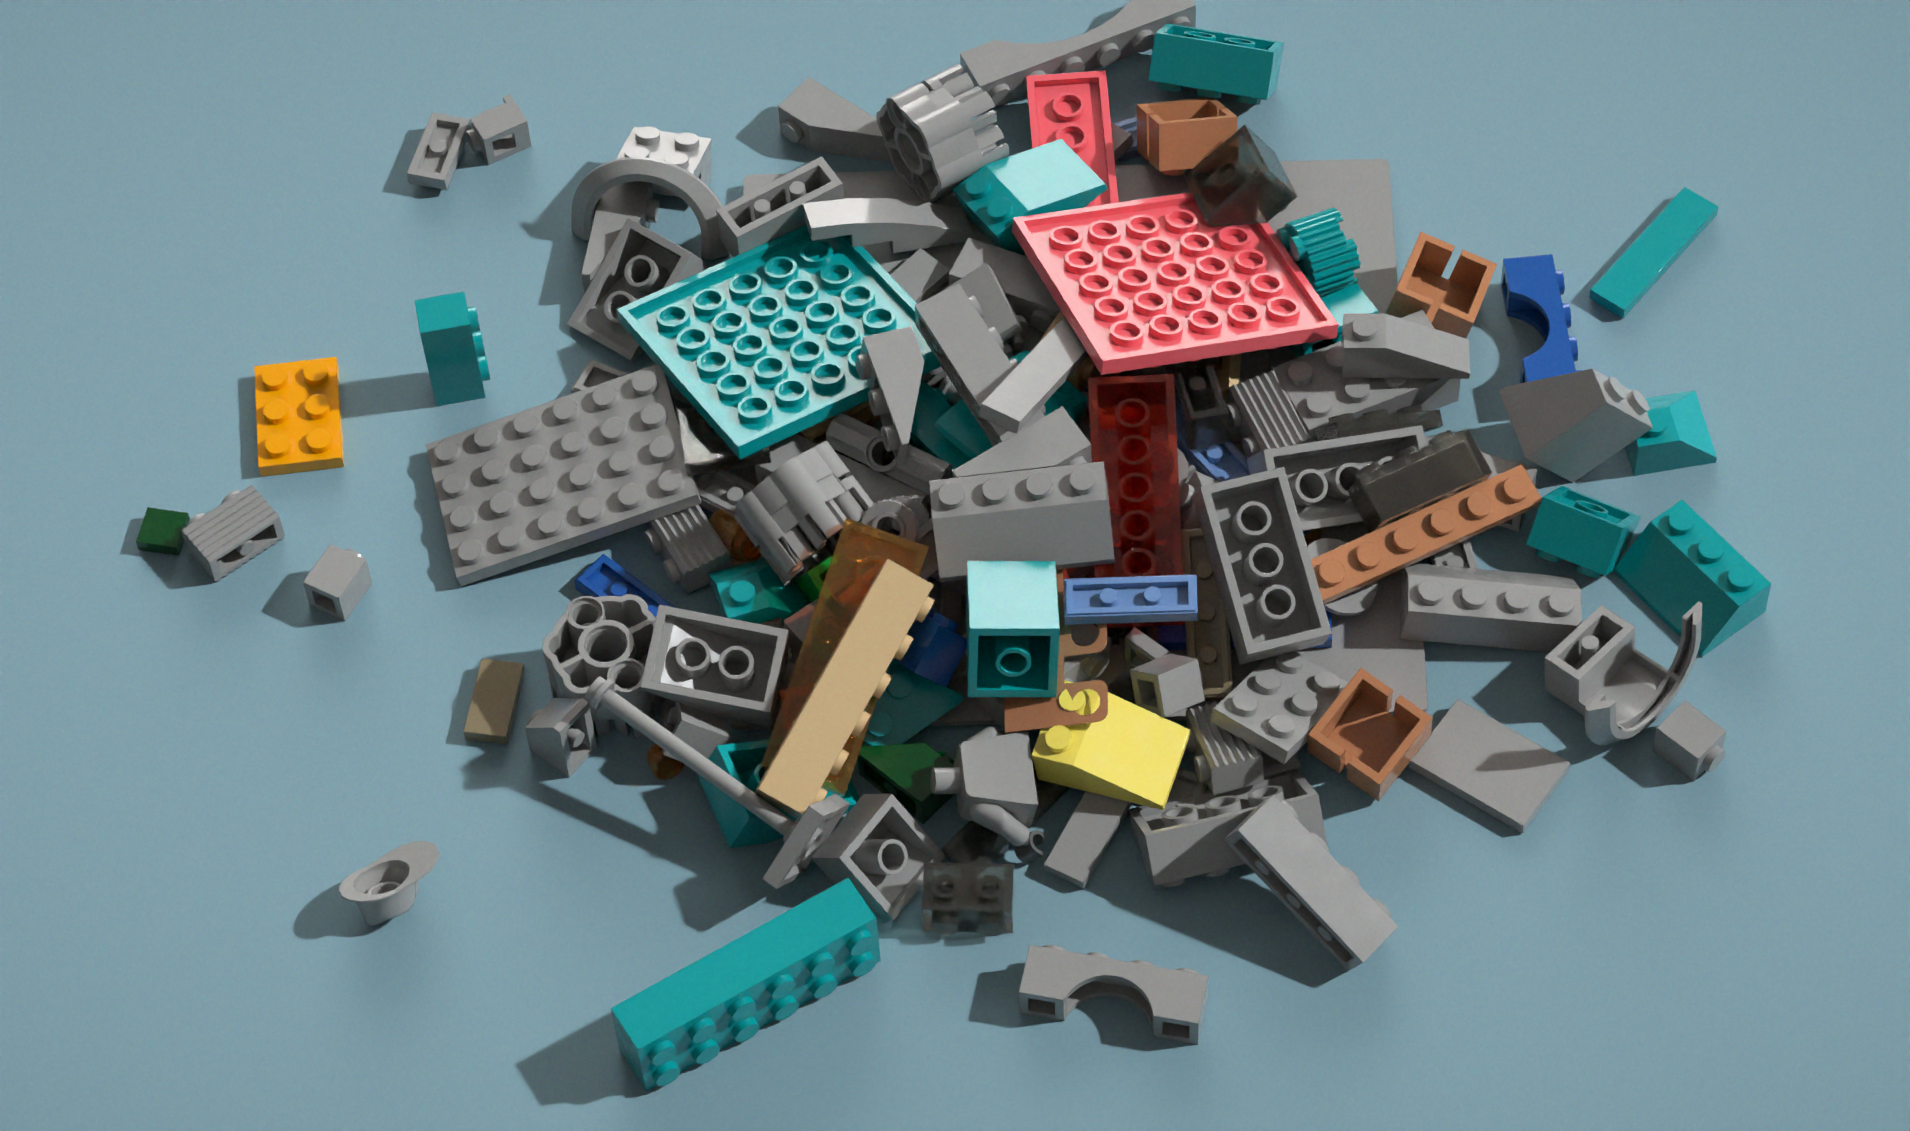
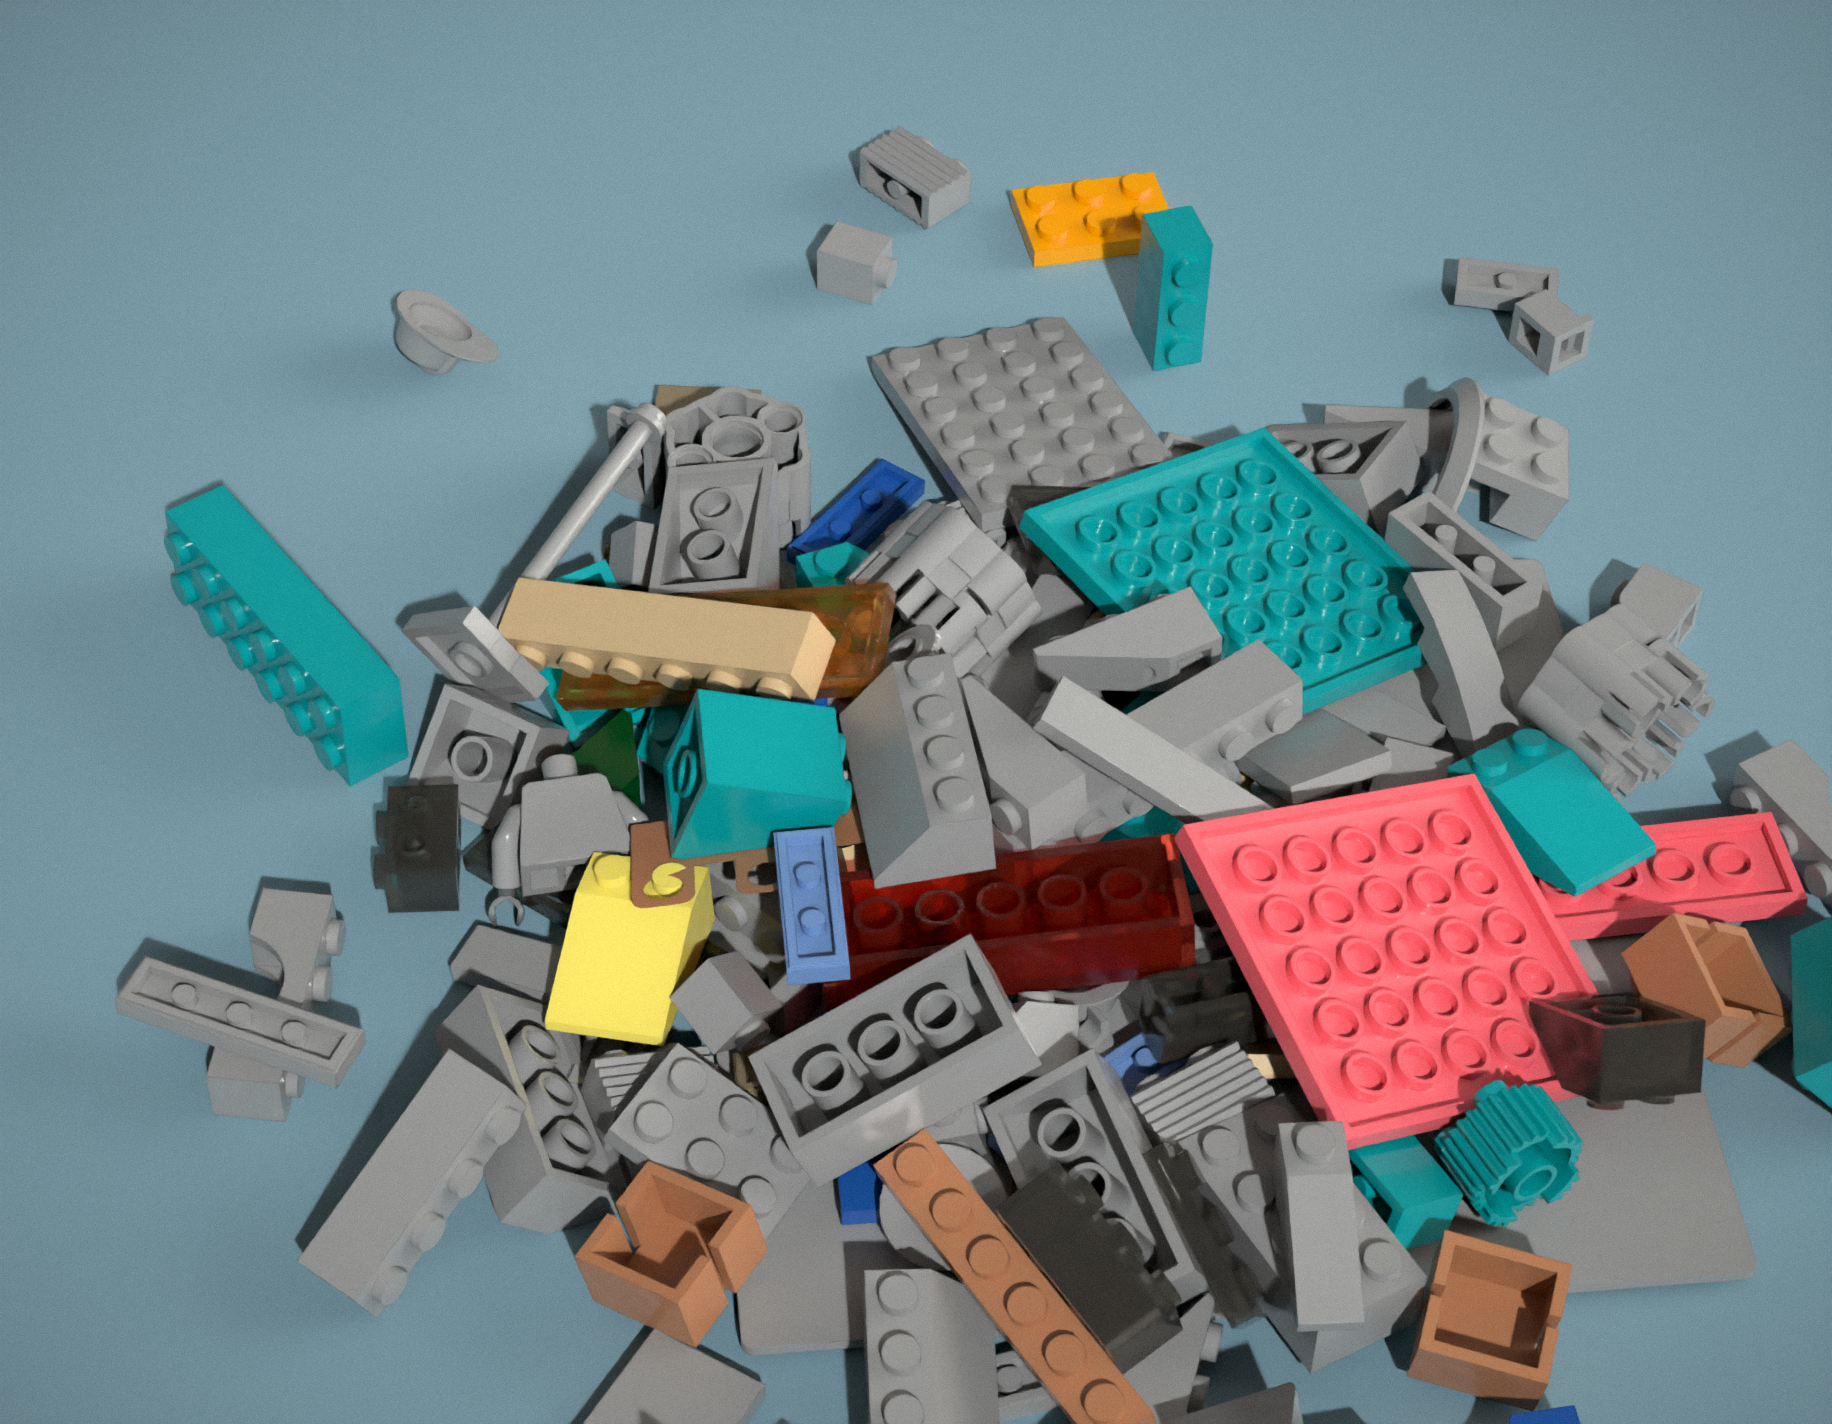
camera: 80 degrees right, 10 degrees down
(162, 531) = (923, 124): dark green tile -> none
(1154, 999) = (240, 1021): none -> light grey tile

